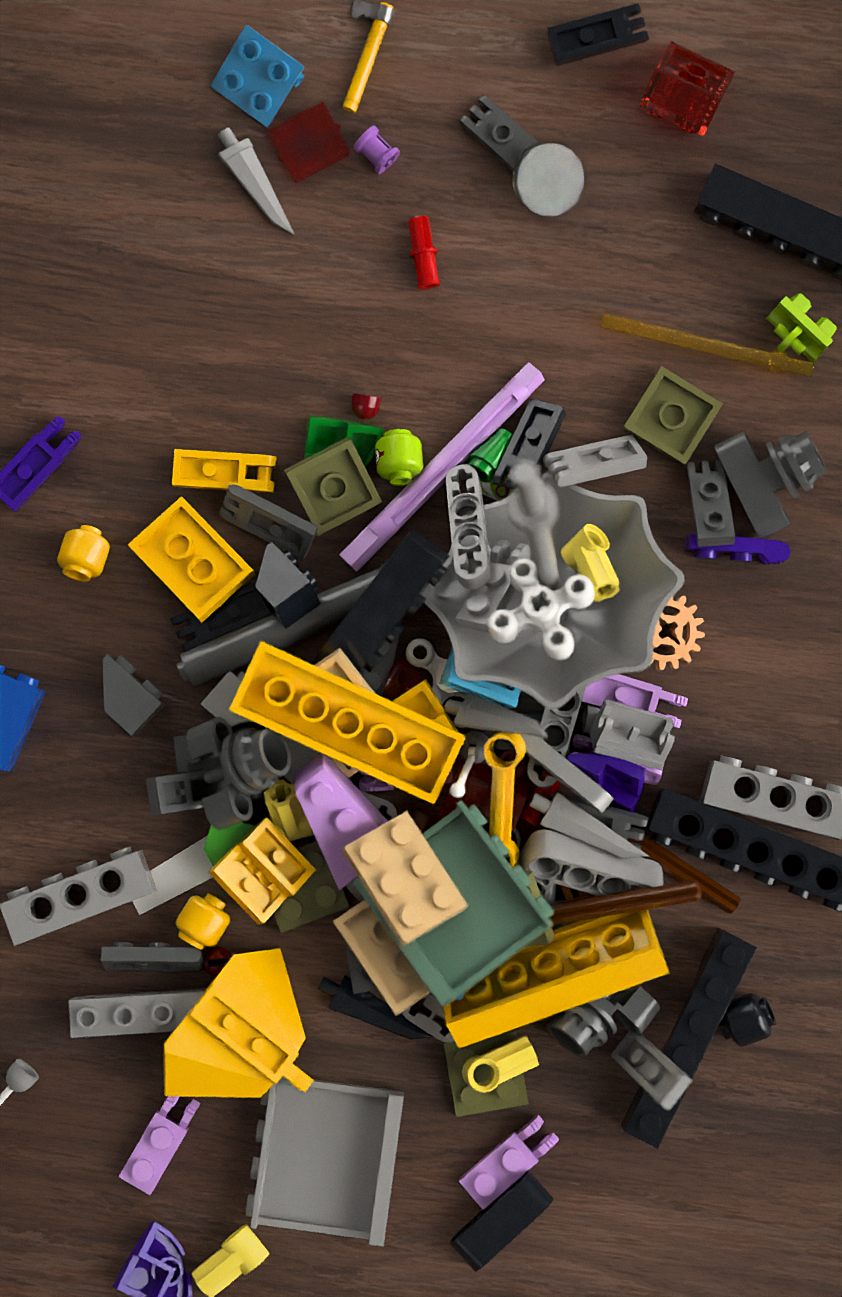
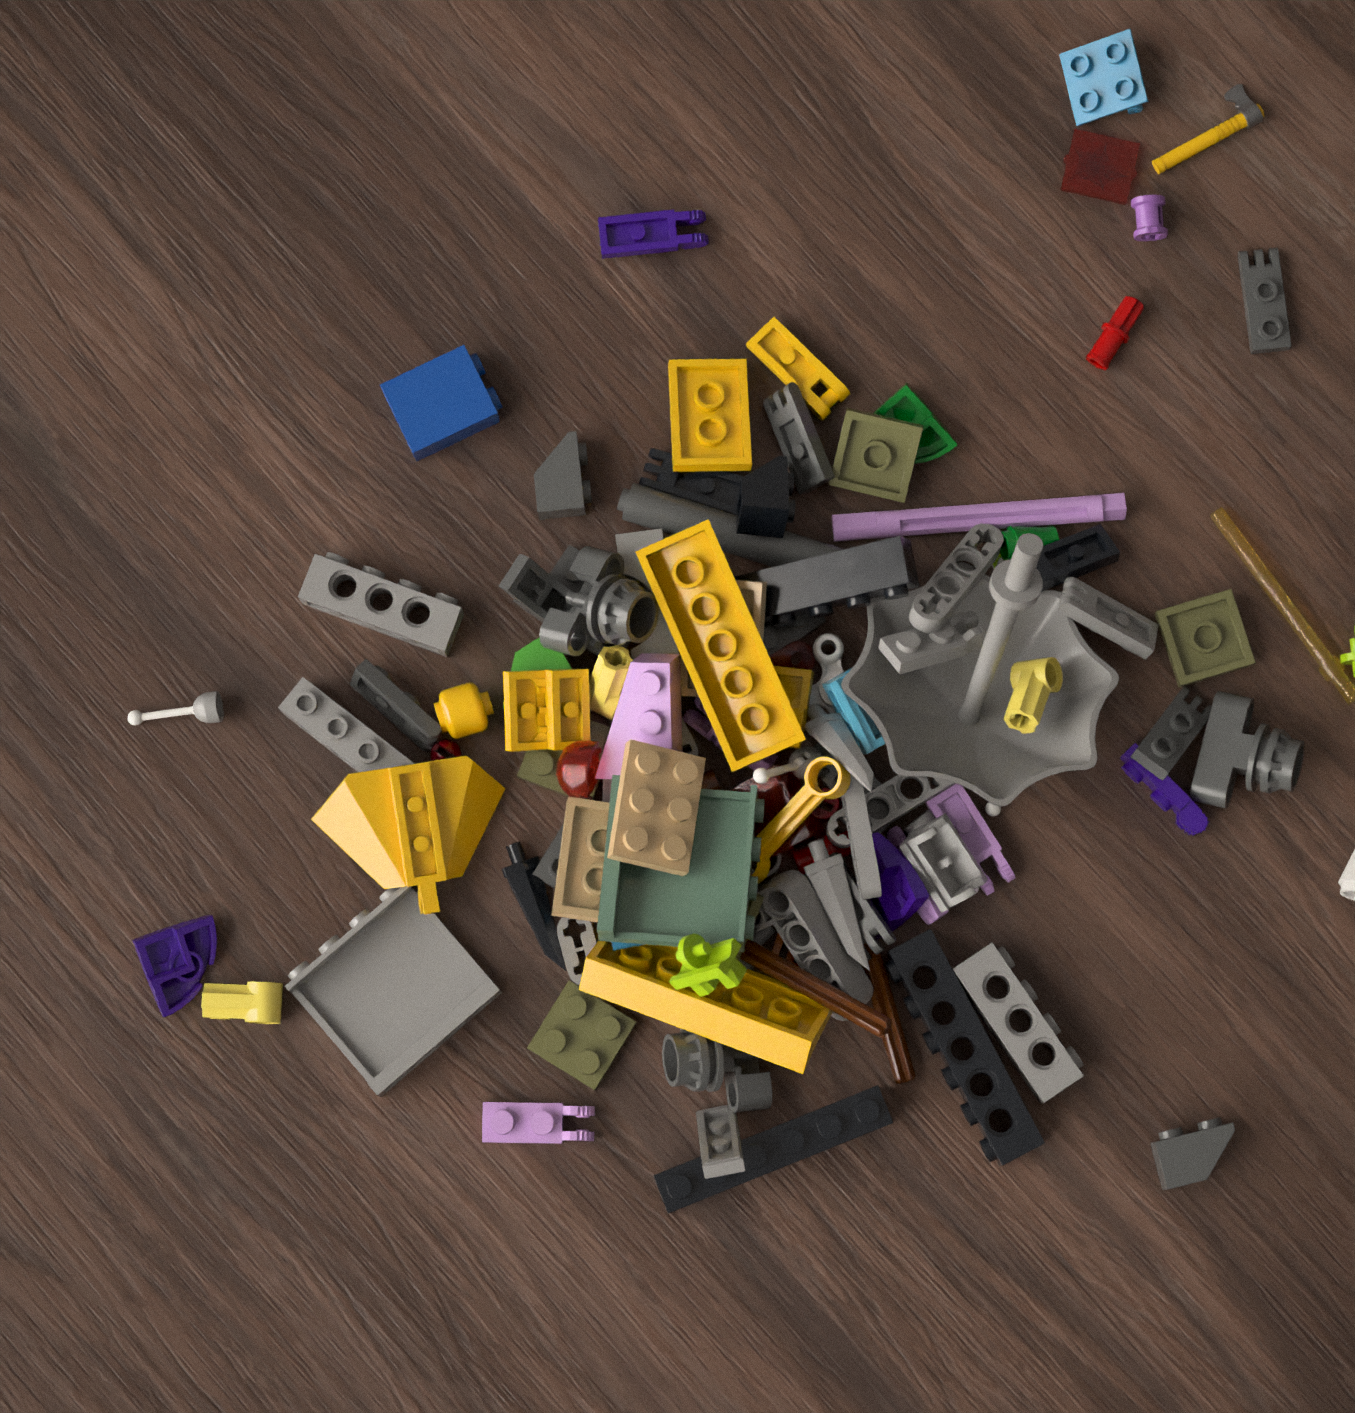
camera: 45 degrees right, 5 degrees down
(83, 553) = (627, 336): yellow head -> none
(157, 1146) = (268, 859): lavender hinge -> none
(177, 876) = (472, 659): white sticker -> none
(247, 169) = (1030, 145): light grey bar -> none
(322, 894) = (578, 768): none -> clear red hair
(365, 406) = (959, 415): dark red hinge -> none
(399, 456) = (950, 477): lime head -> none
(501, 1221) = (488, 1163): black beam -> none
(503, 1063) = (604, 1034): light yellow piece -> none
(538, 599) = (955, 688): white gear -> none
(539, 958) = (707, 964): none -> lime hips
(548, 179) = (1270, 360): clear smoke tile -> none
(674, 642) = (1043, 823): light nougat gear -> none
(747, 1020) = (833, 1179): black head -> none

